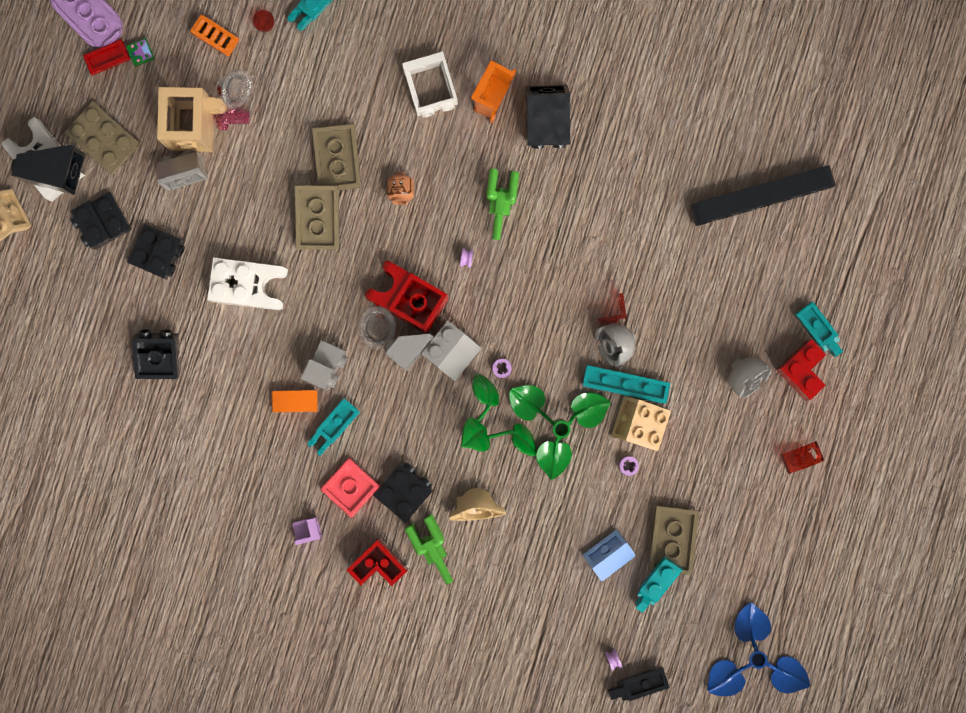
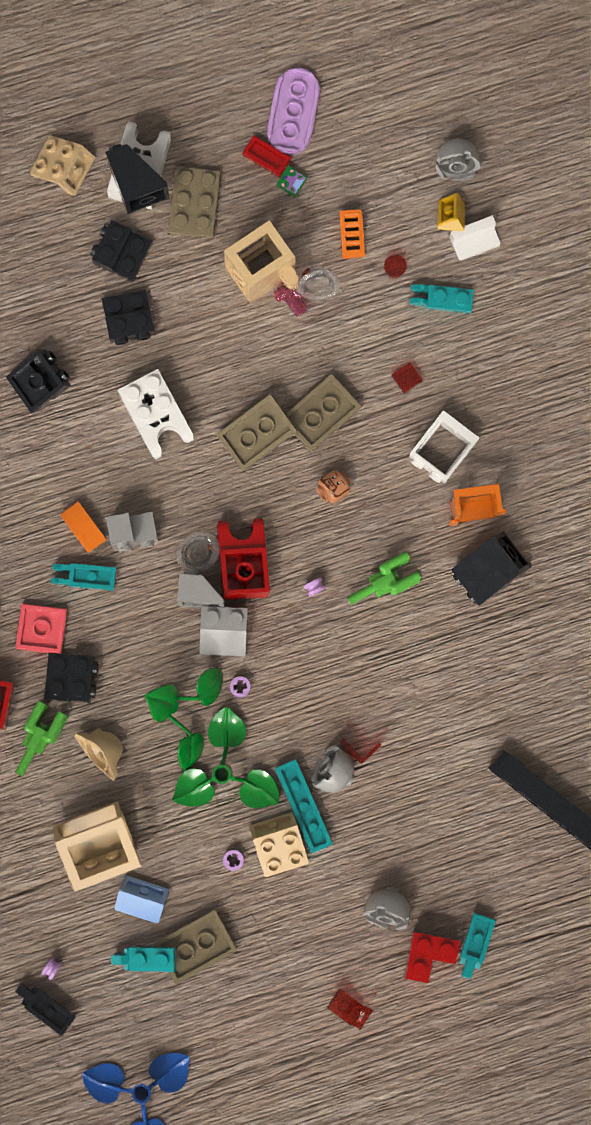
camera: 50 degrees right, 5 degrees down
(181, 170) = (214, 288): light grey slope -> none
(356, 74) = (406, 378): none -> clear red tile
(547, 563) = (96, 846): none -> tan piece

